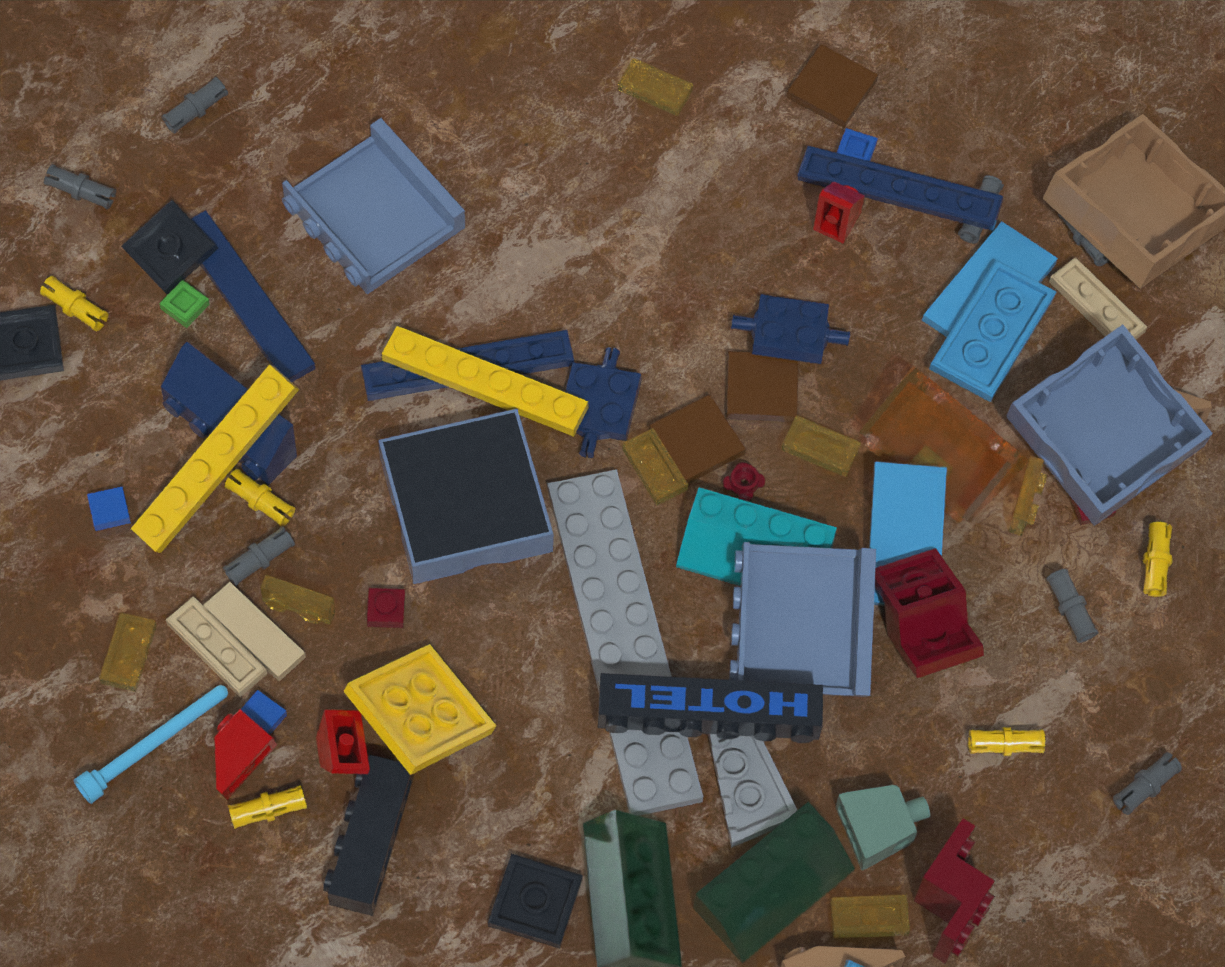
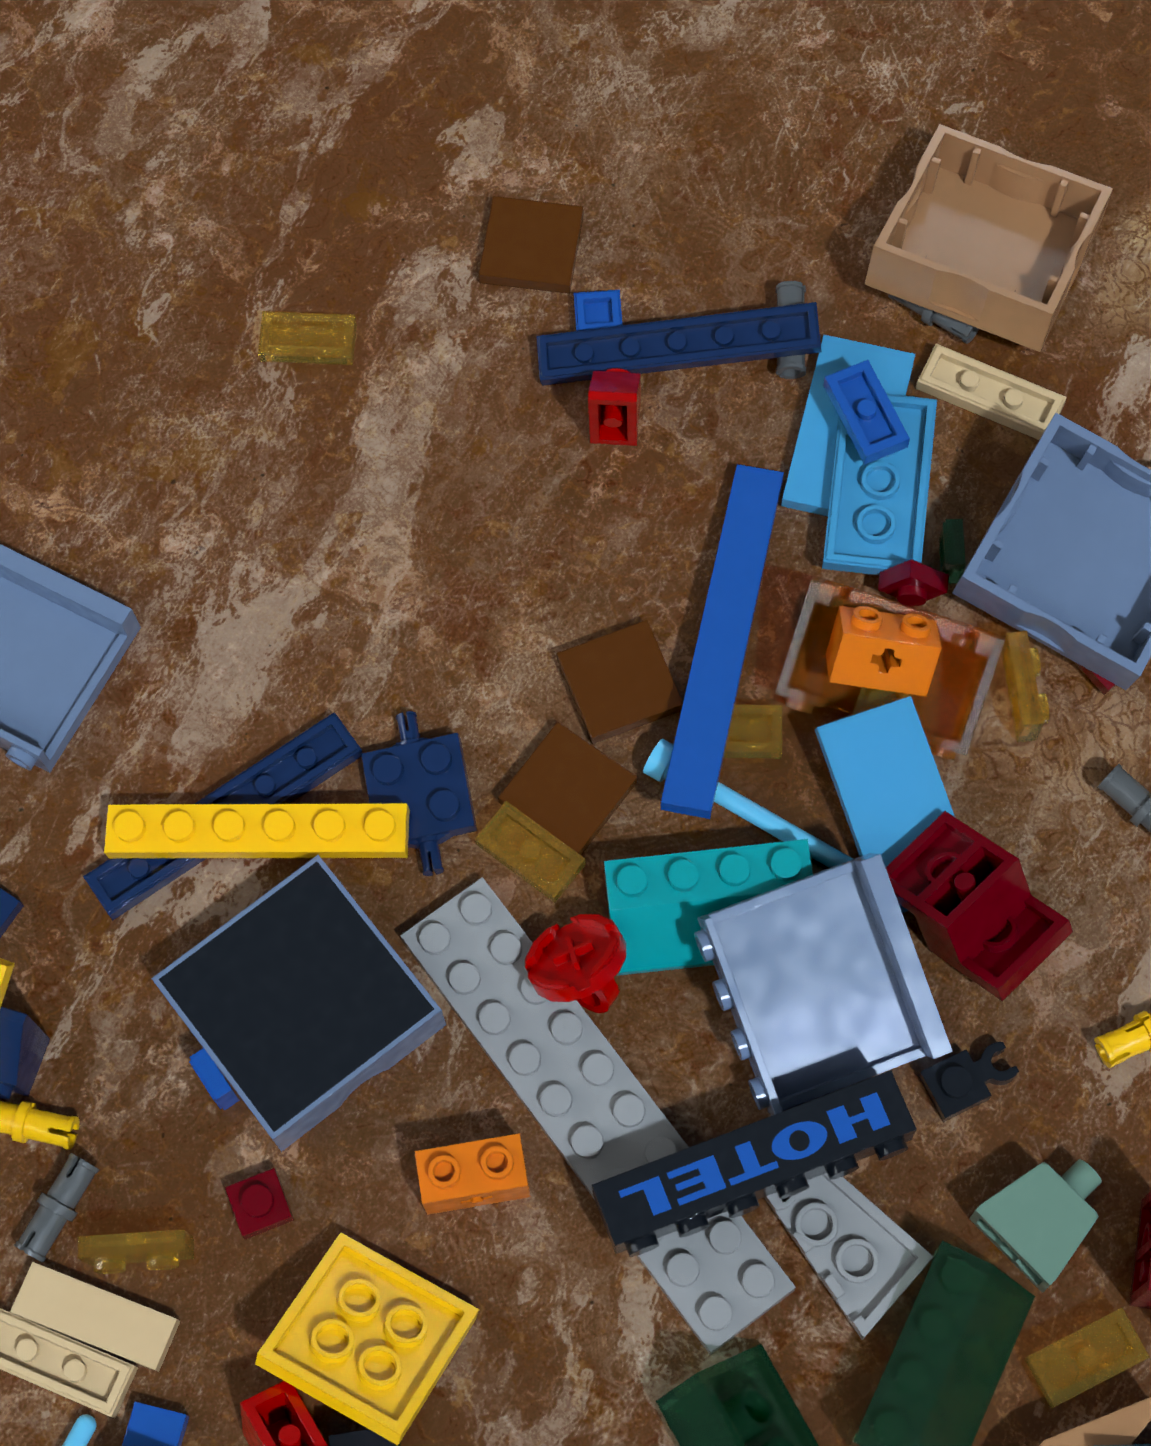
camera: 15 degrees left, 5 degrees up
(390, 520) = (213, 1080): none -> blue tile
(528, 643) = (472, 1174): none -> orange brick
(654, 543) = (578, 962): none -> red tile
(746, 472) = (640, 828): dark red plate -> none
(769, 449) = (657, 768): none -> medium azure piece
(790, 329) = (623, 590): dark blue plate -> none
(841, 386) = (722, 643): none -> blue tile
(868, 723) = (961, 1083): none -> black plate
(925, 434) = (883, 650): none -> orange brick
(984, 401) = (913, 583): none -> dark red plate
(1002, 279) = (866, 412): none -> blue plate
(1022, 386) = (952, 549): none -> clear green tile

